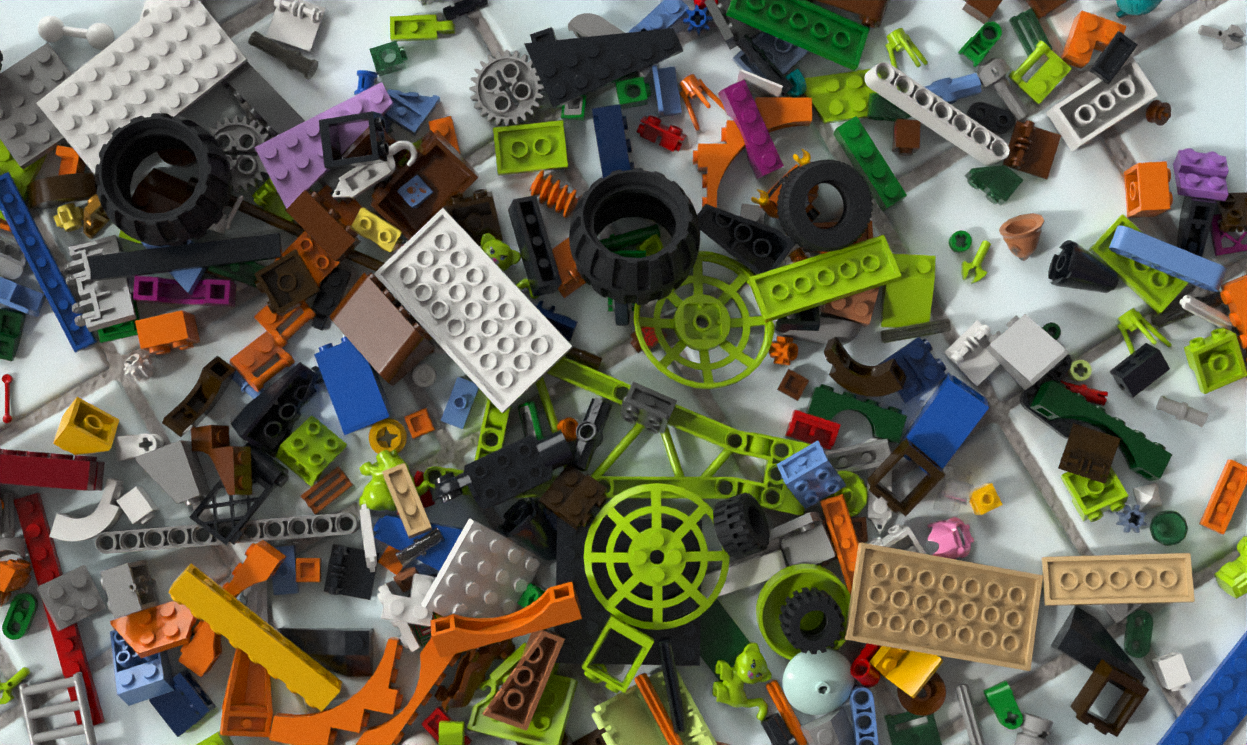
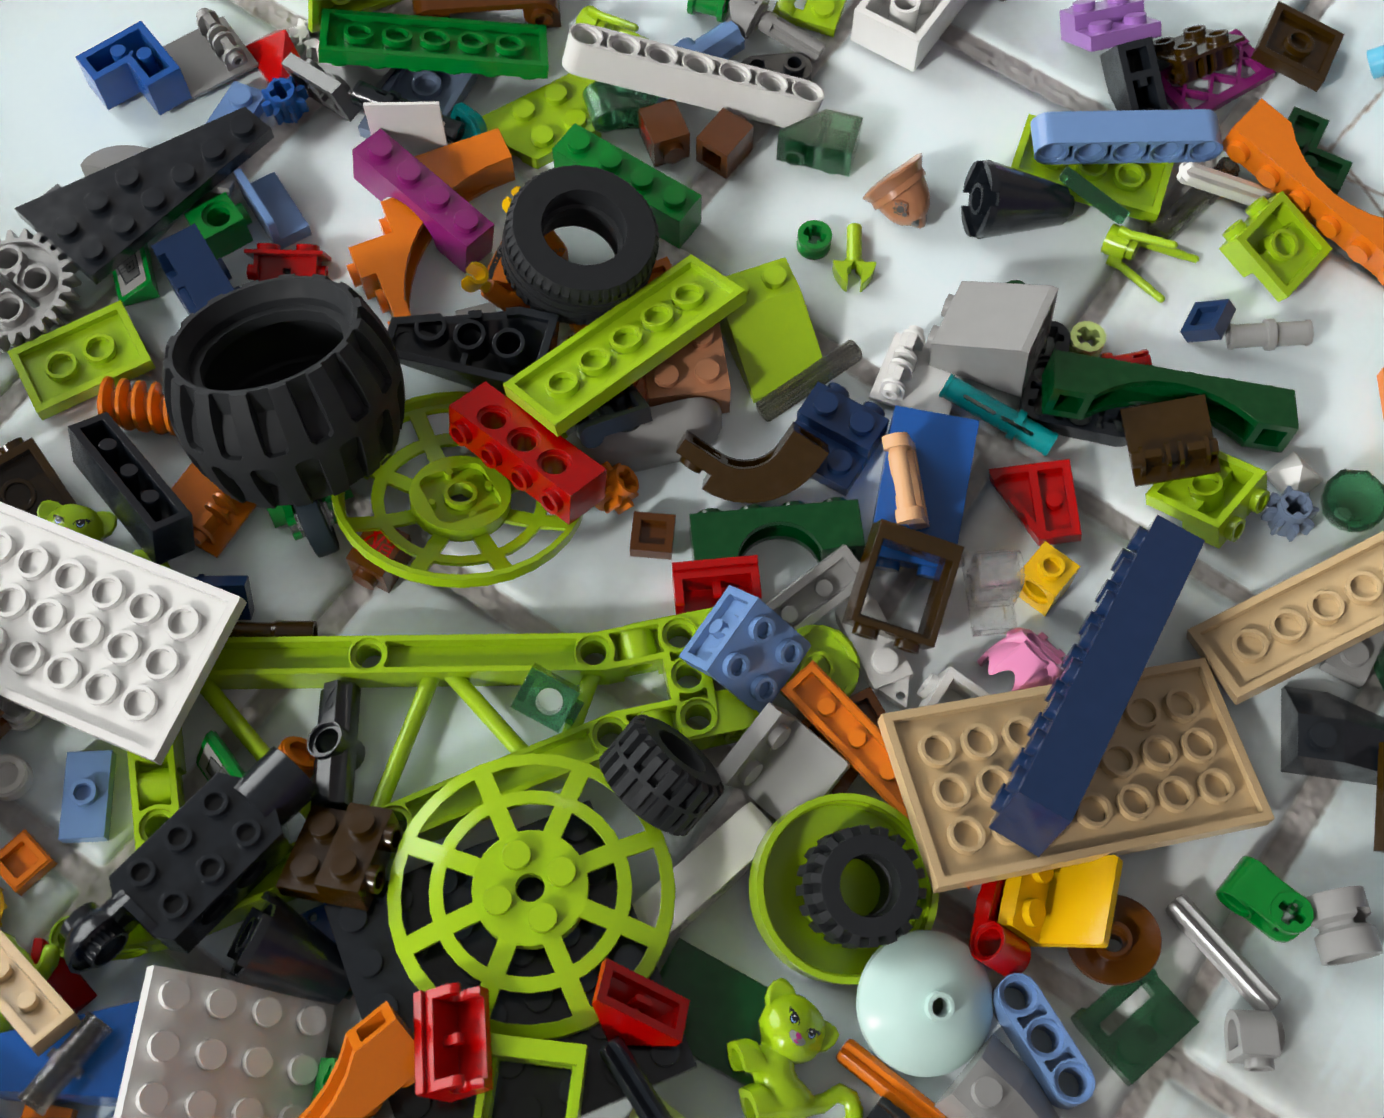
camera: 25 degrees left, 20 degrees down
(595, 614) = (452, 1042): none -> red hinge
(647, 408) = (416, 657): dark grey bracket -> none
(684, 633) = (638, 1008): none -> red slope
(693, 87) = (314, 190): orange plant -> none
(704, 448) = (528, 704): none -> clear green brick
(736, 283) = (527, 452): none -> red brick
(933, 429) = (907, 480): none -> light nougat plate
(938, 157) = (724, 143): none -> reddish brown brick
(975, 574) = (1095, 686): none -> dark blue brick
(1005, 453) = (1041, 499): none -> red wing
(1007, 395) = (1041, 440): none -> teal pin
(1032, 149) = (856, 85): reddish brown hinge -> none
(1128, 288) = (1093, 195): none -> clear green tile
(1140, 369) = (1174, 301): black hinge -> none
(1147, 189) = (1045, 63): orange brick -> none
(1154, 391) = (1208, 320): none -> dark blue plate

